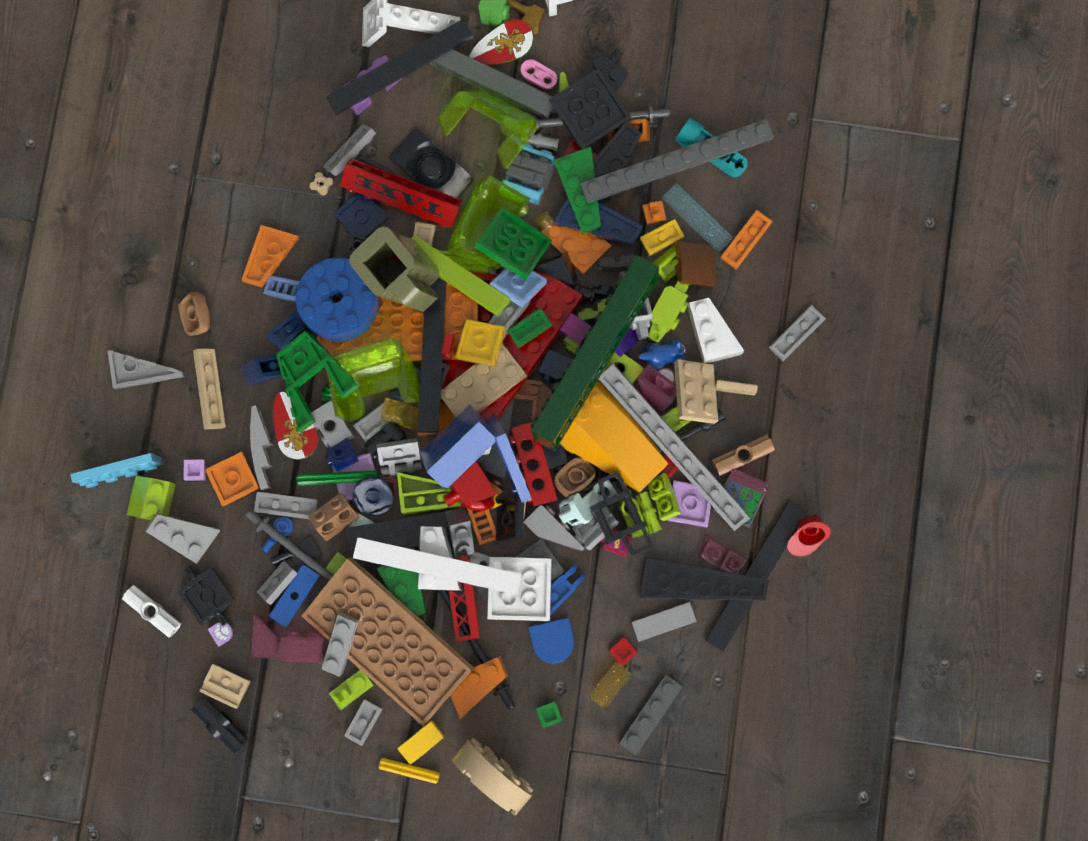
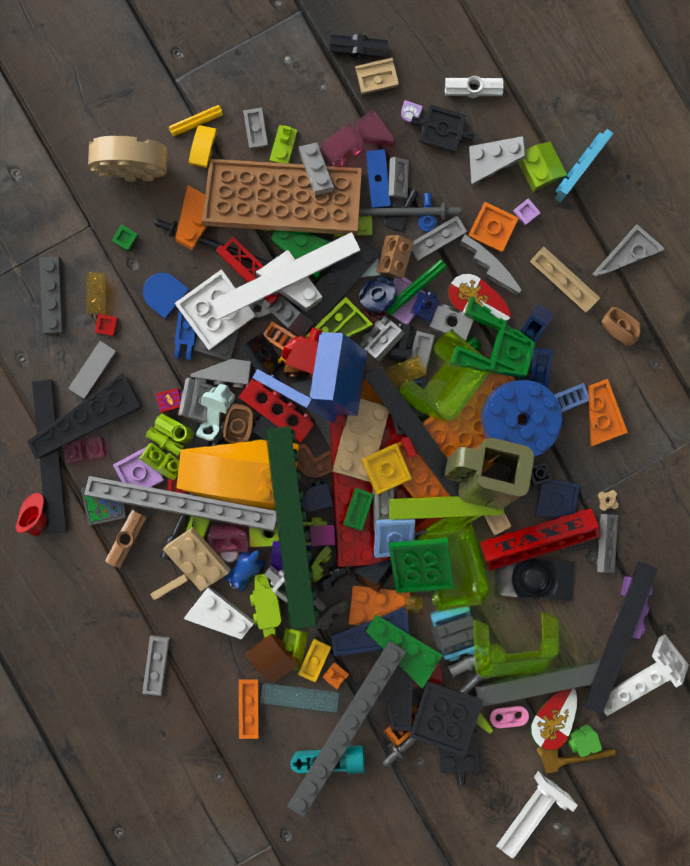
camera: 135 degrees right, 5 degrees up
(625, 495) = (161, 423): black bar -> none
(748, 481) = (106, 522): clear pink axle -> none

